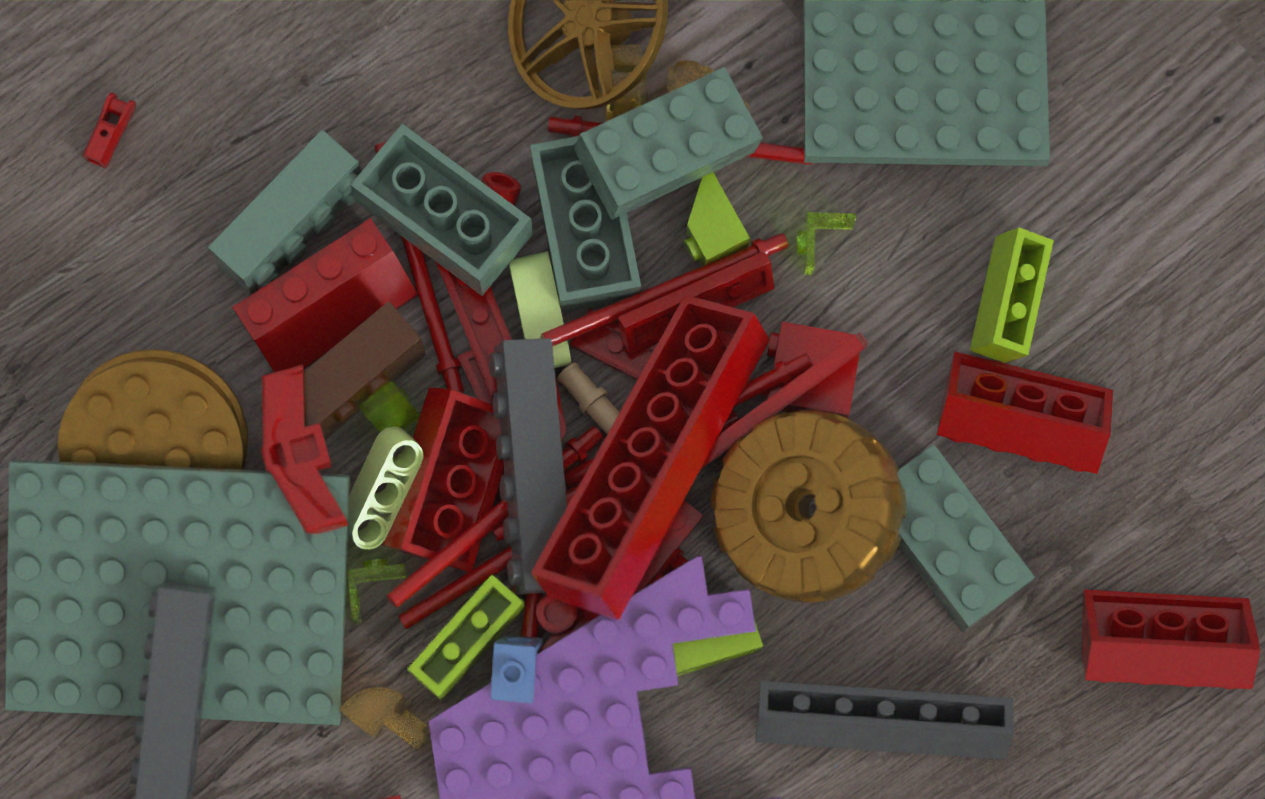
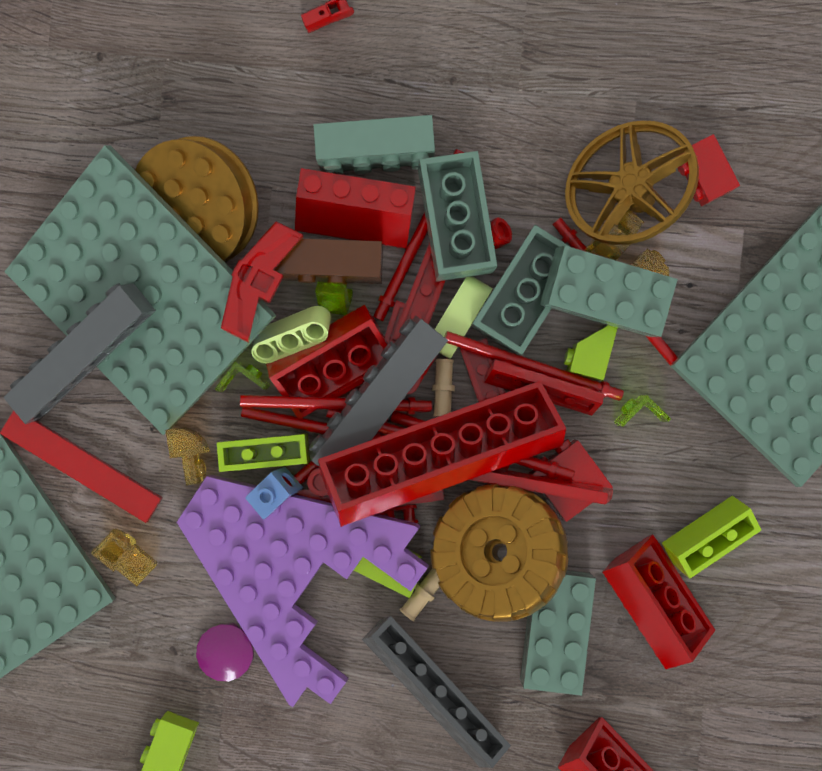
camera: 45 degrees right, 10 degrees up
(774, 634) = (421, 595): none -> tan pin

